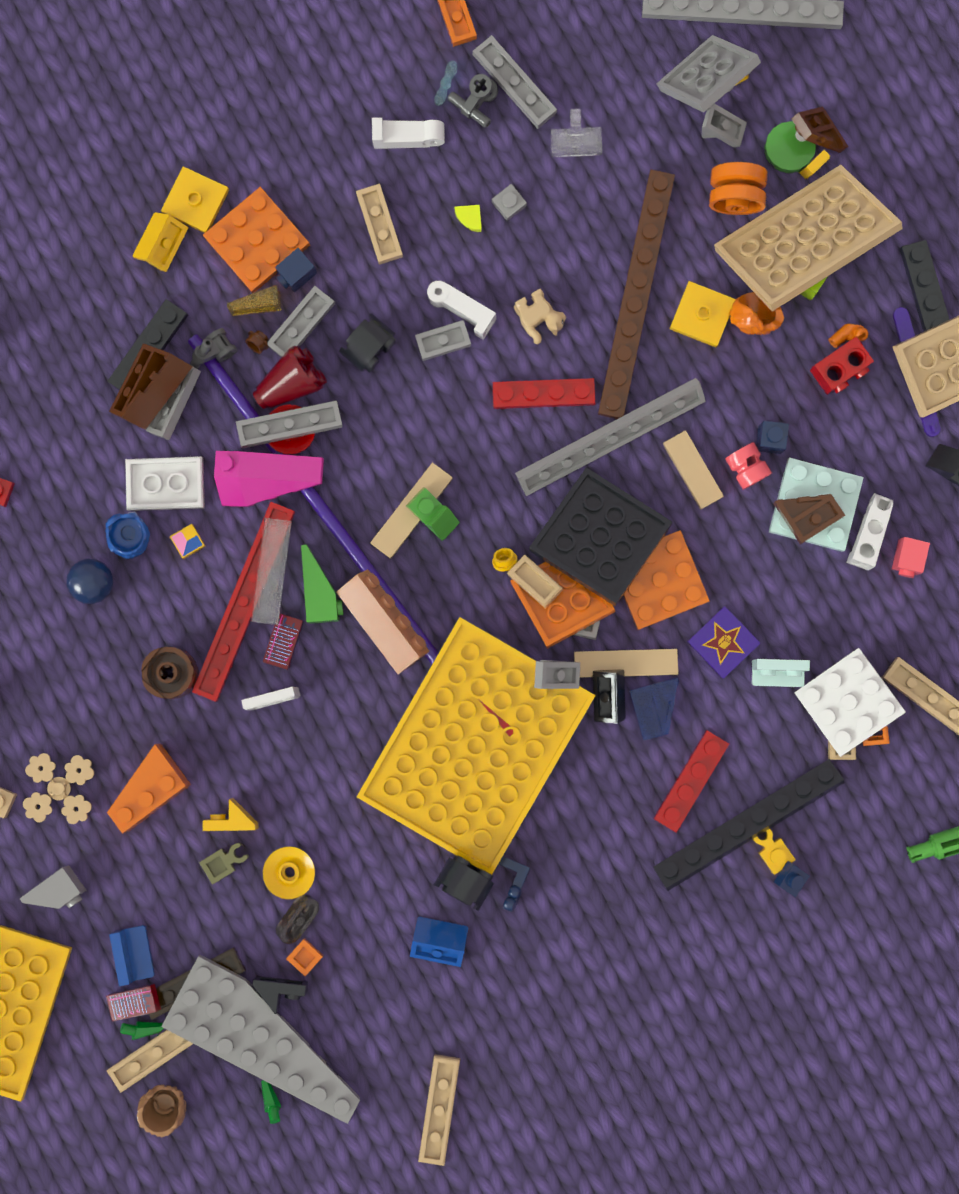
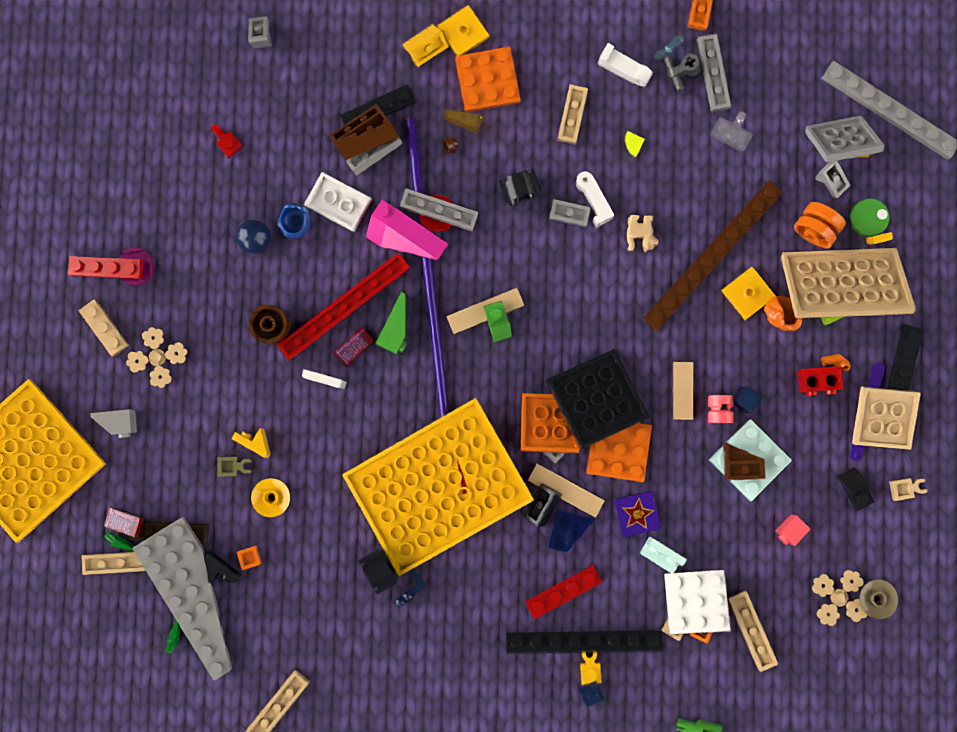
camera: 30 degrees right, 0 degrees up
(132, 954) = (140, 491): blue panel -> none
(148, 790) = (213, 391): orange wedge -> none
(161, 1110) = (100, 602): medium nougat hair -> none
(187, 541) = (331, 247): tile -> none
(213, 346) = (420, 132): dark grey piece -> none
(271, 571) = (371, 297): clear brick -> none
(289, 379) = (456, 181): dark red cone -> none
(295, 270) = (500, 113): dark blue brick -> none
(297, 919) = (258, 530): clear smoke plate -> none
(301, 321) = (484, 149): light grey plate -> none
(383, 621) = (425, 371): brick -> none
(439, 941) = (340, 598): blue panel -> none
(504, 559) = (526, 377): yellow plate -> none
(509, 202) = (664, 148): light grey plate -> none
(535, 581) = (538, 403): tan tile -> none
(543, 393) = (615, 285): red plate -> none
(557, 674) = (516, 472): light grey slope -> none
(610, 437) = (642, 338): light grey plate -> none
(819, 129) = (895, 216): reddish brown wing -> none
(871, 533) = (775, 500): white leg -> none

